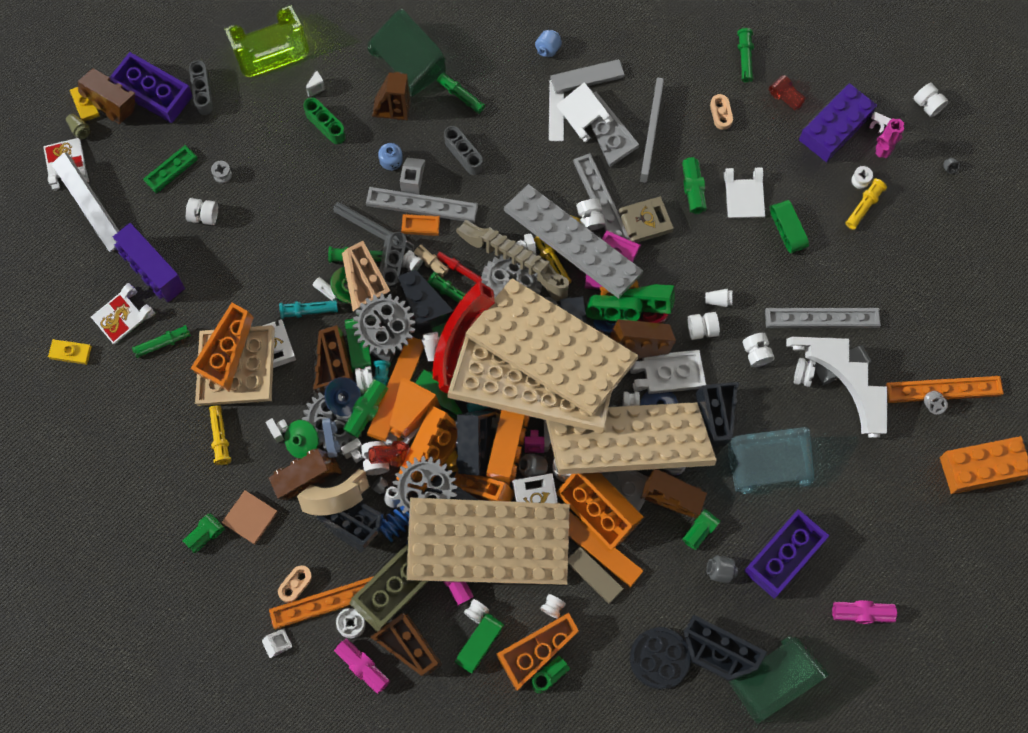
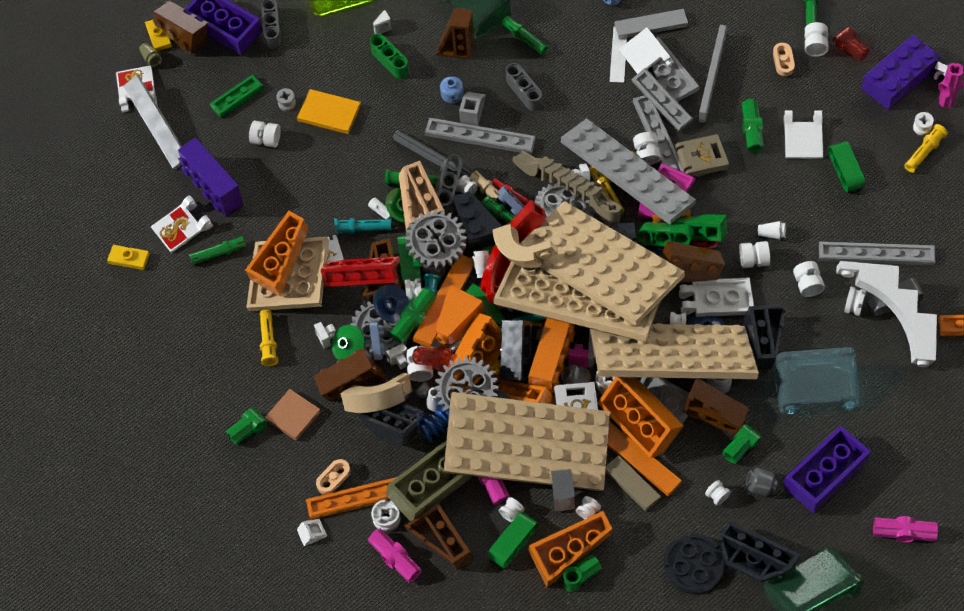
camera: 10 degrees right, 10 degrees down
(266, 183) = (329, 111): none -> light orange tile
(309, 365) = (360, 271): none -> red fence
(420, 225) = (478, 154): orange tile -> none
(454, 273) = (507, 196): none -> sand blue plate
(459, 332) = (527, 257): none -> tan arch
(527, 589) = (563, 490): none -> dark grey slope
(603, 160) = (662, 99): none -> light grey tile
(680, 582) = (718, 492): none -> white wheel
(753, 89) = (816, 39): none -> white wheel

